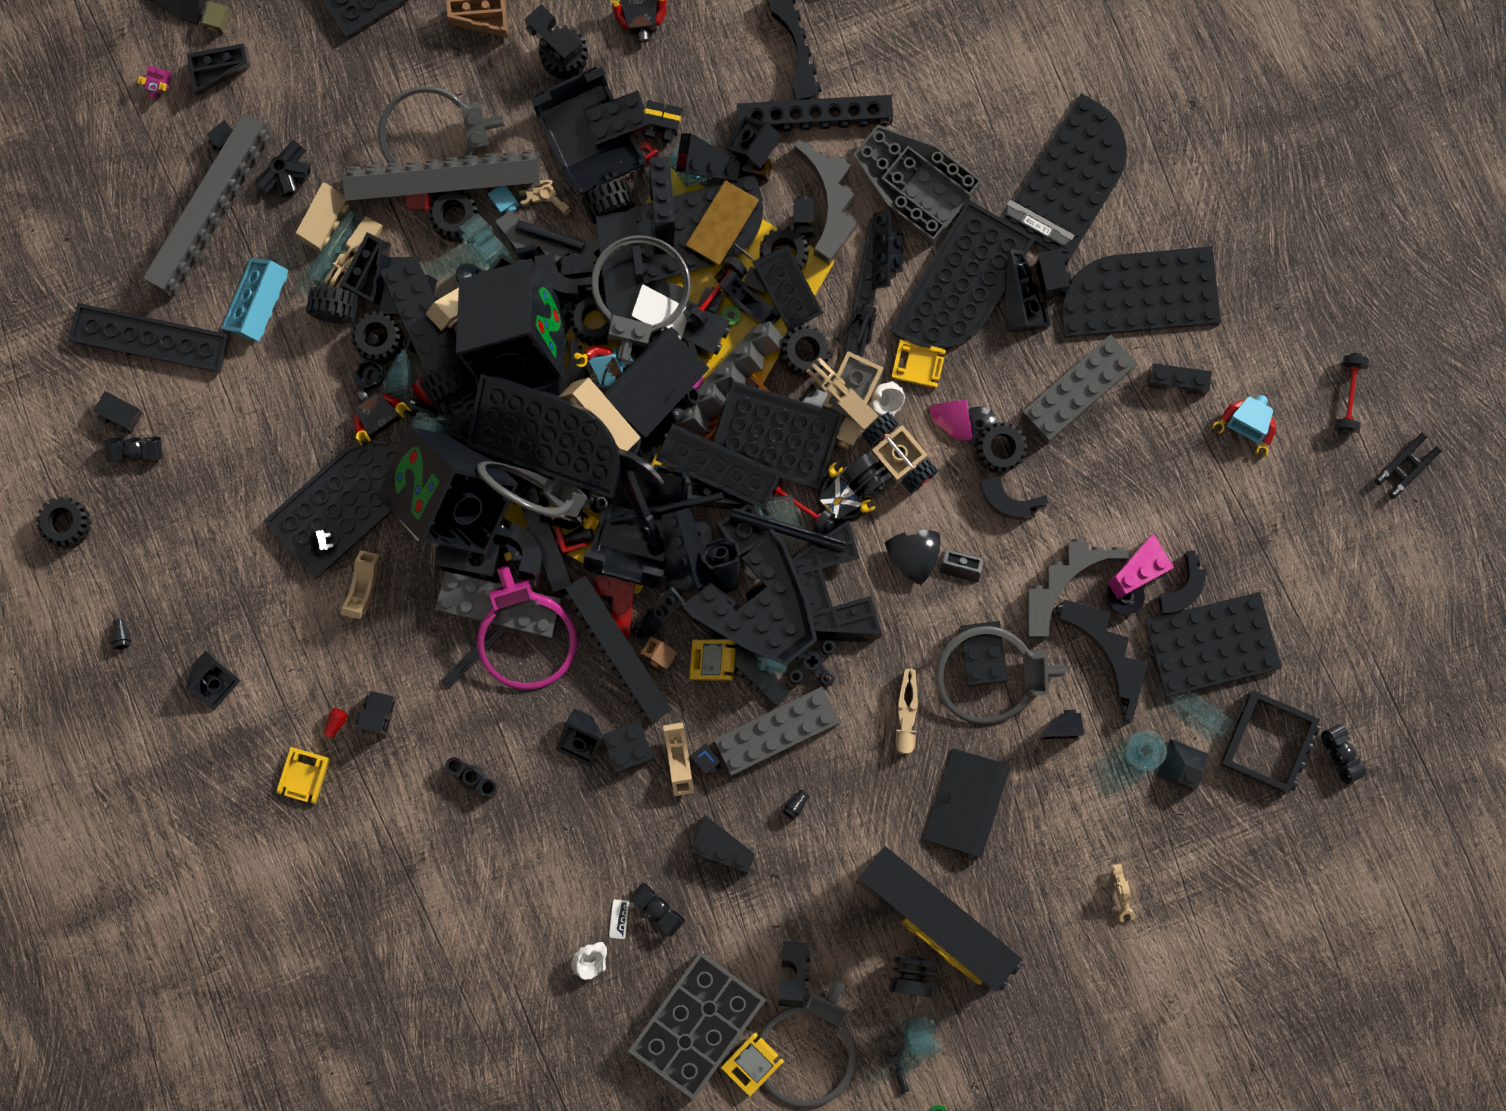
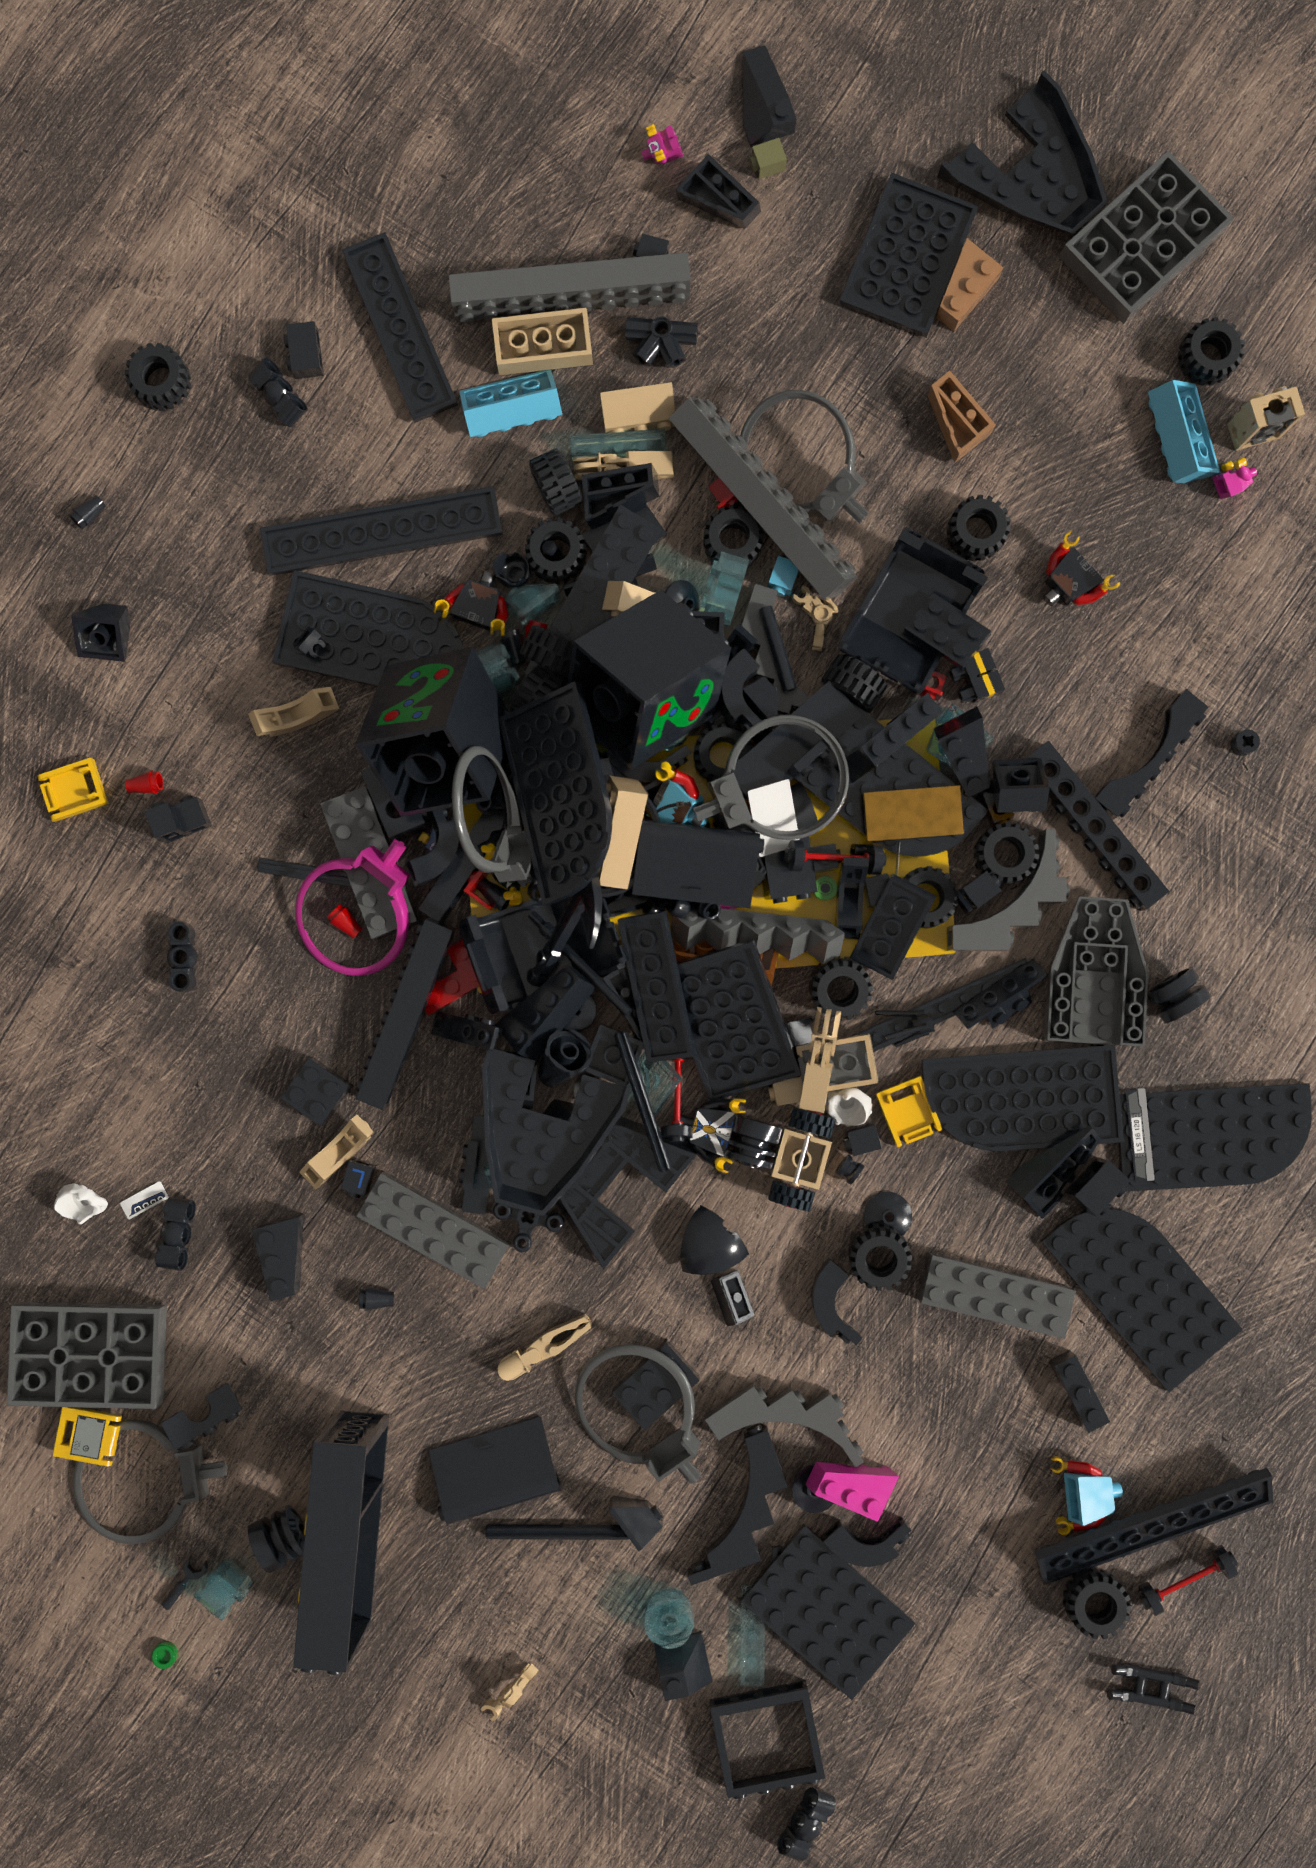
camera: 50 degrees right, 5 degrees up
(230, 249) = (542, 341): none -> tan brick
(278, 445) = (381, 531): none -> black plate
(523, 651) = (344, 921): none -> red cone
(564, 47) = (982, 524): black arch -> none
(580, 738) = (294, 1037): black slope -> none
(658, 653) = (430, 1056): medium nougat brick -> none
(714, 661) = (461, 1118): yellow container -> none
(785, 168) = (1022, 841): none -> black tyre
(916, 406) = (862, 1140): none -> black brick
(929, 428) = (849, 1169): none -> black wheel
(953, 418) = (876, 1187): dark pink brick -> none
(963, 135) = (1178, 995): none -> black wheel
(1037, 789) = (554, 1532): none -> black axle
(1300, 391) = (1154, 1526): none -> black plate
(1337, 451) = (1111, 1617): none -> black tyre

